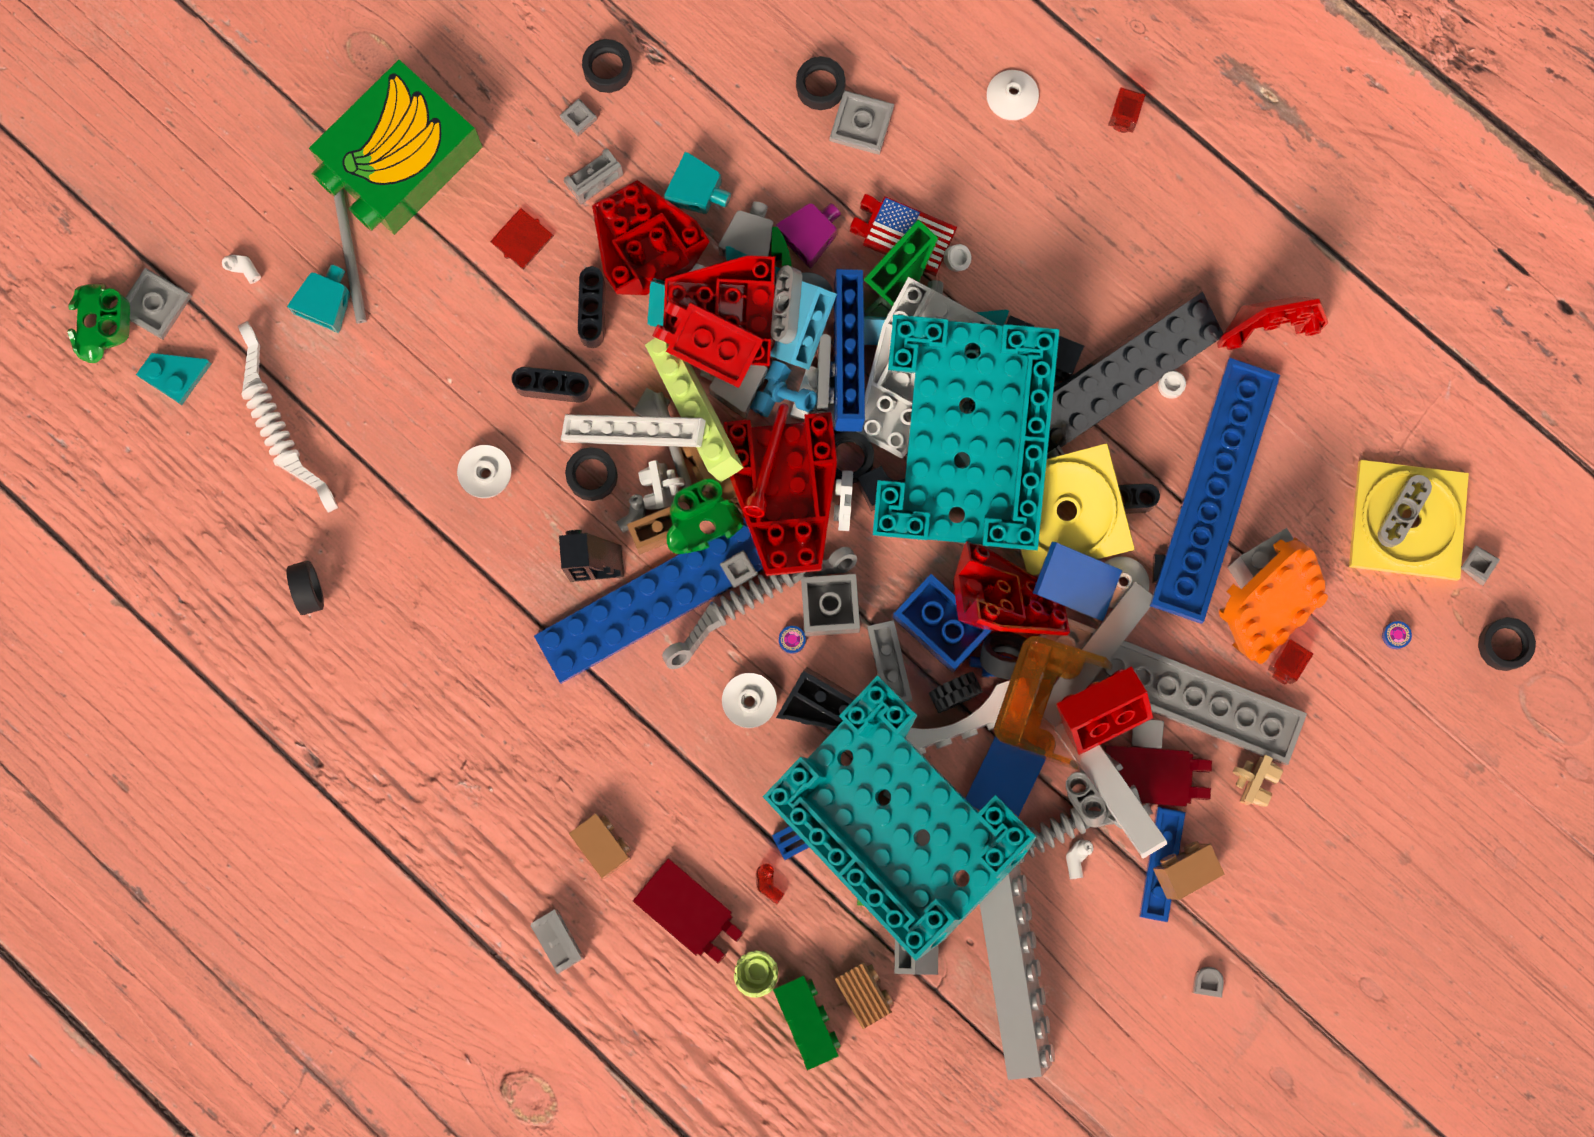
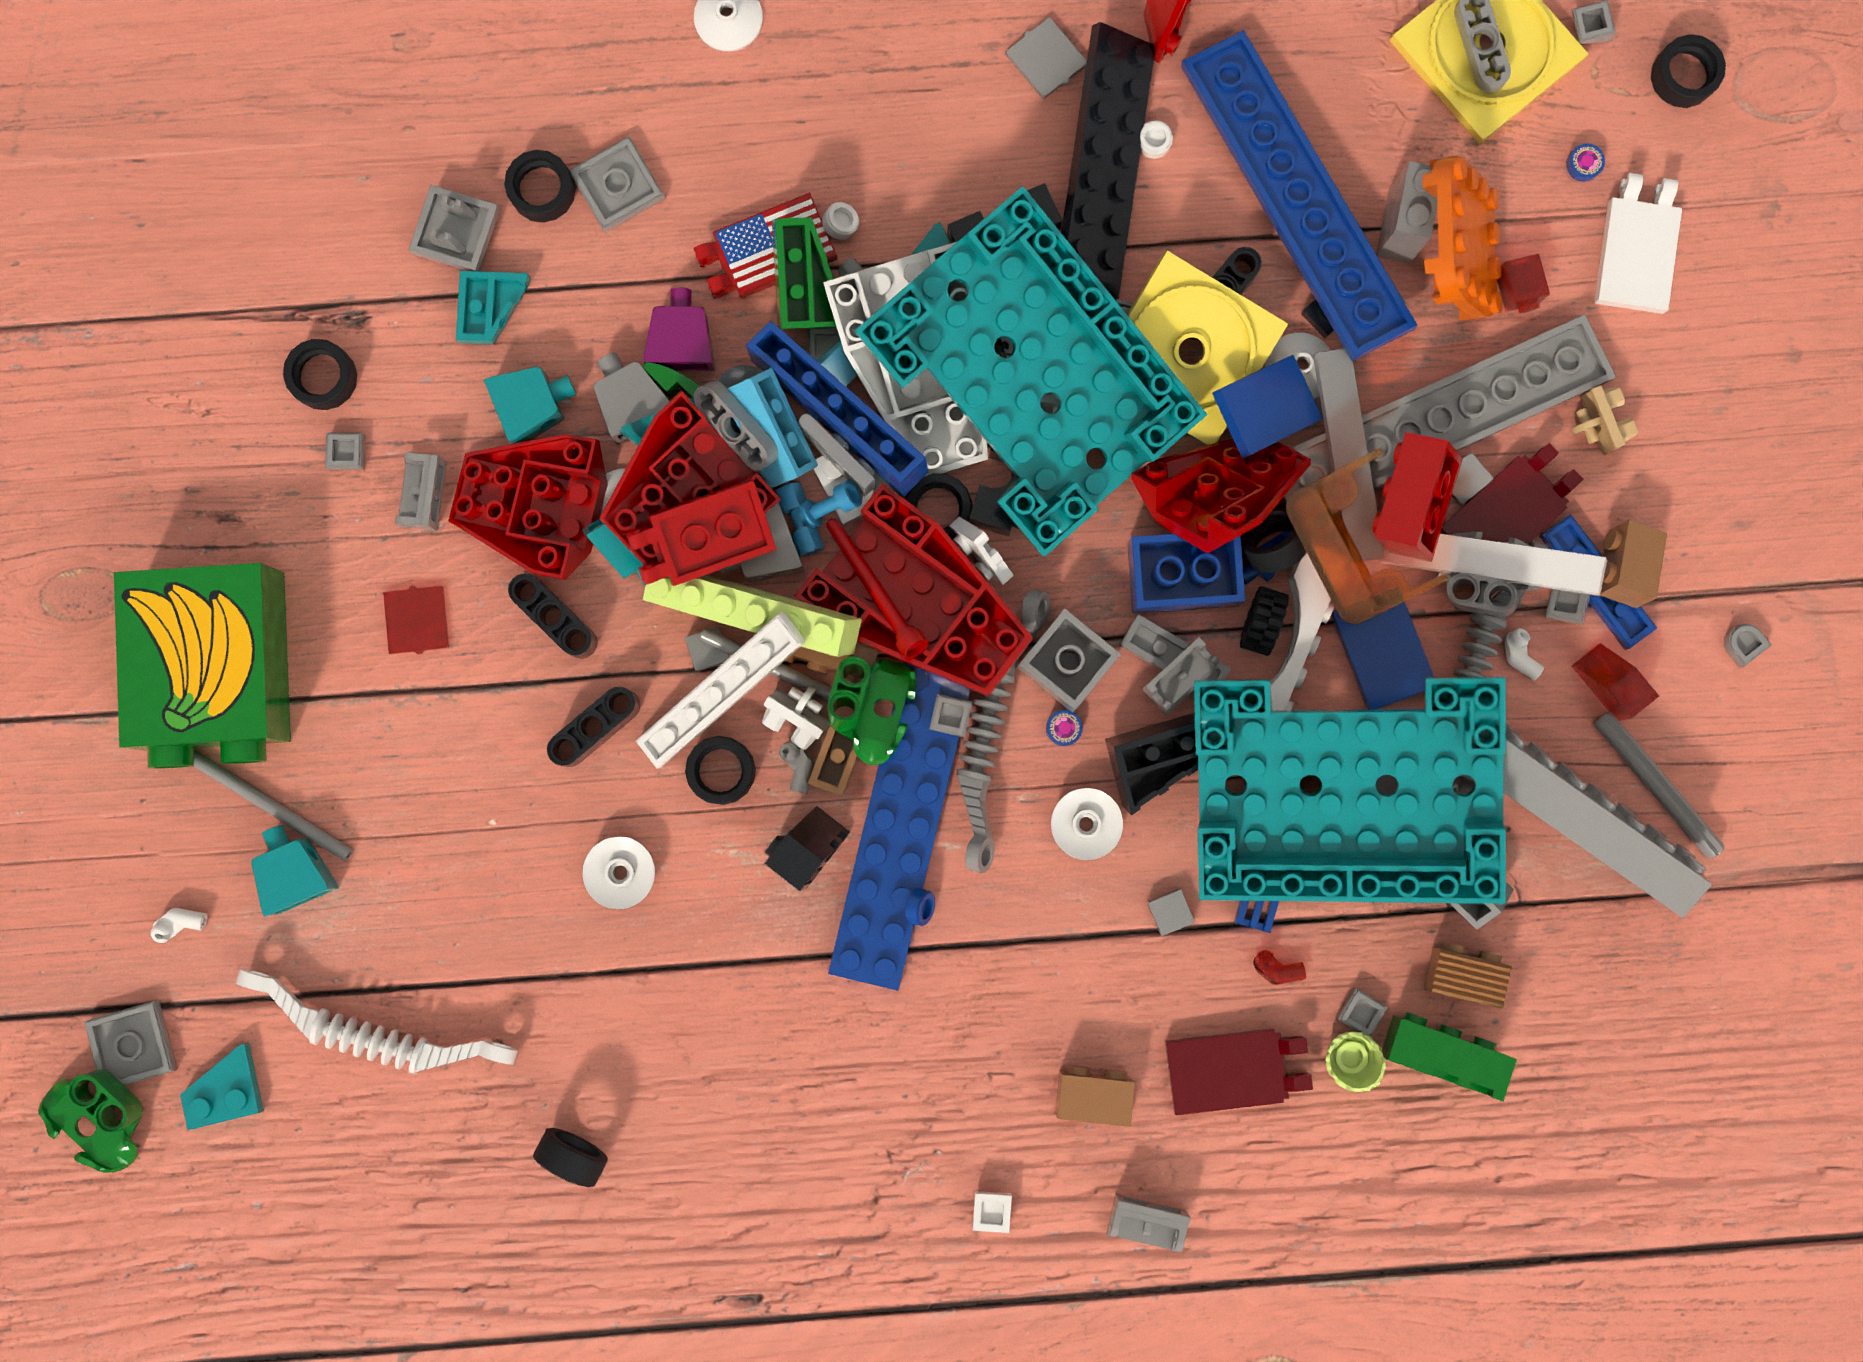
camera: 50 degrees left, 5 degrees up
(484, 847) = (992, 1212): none -> white plate
(617, 651) = (920, 907): none -> blue tile
(729, 115) = (487, 304): none -> teal wing
(744, 794) = (1170, 912): none -> light grey tile
(753, 61) = (454, 229): none -> light grey plate
(788, 954) = (1361, 1012): none -> light grey tile
(891, 671) = (1178, 677): none -> light grey hinge
(1078, 1007) = (1659, 785): none -> light grey axle
(1112, 924) = (1615, 682): none -> clear red slope
(1130, 859) = (1567, 606): none -> light grey tile
(1159, 283) = (1046, 58): none -> light grey piece
(1376, 711) = (1639, 248): none -> white tile

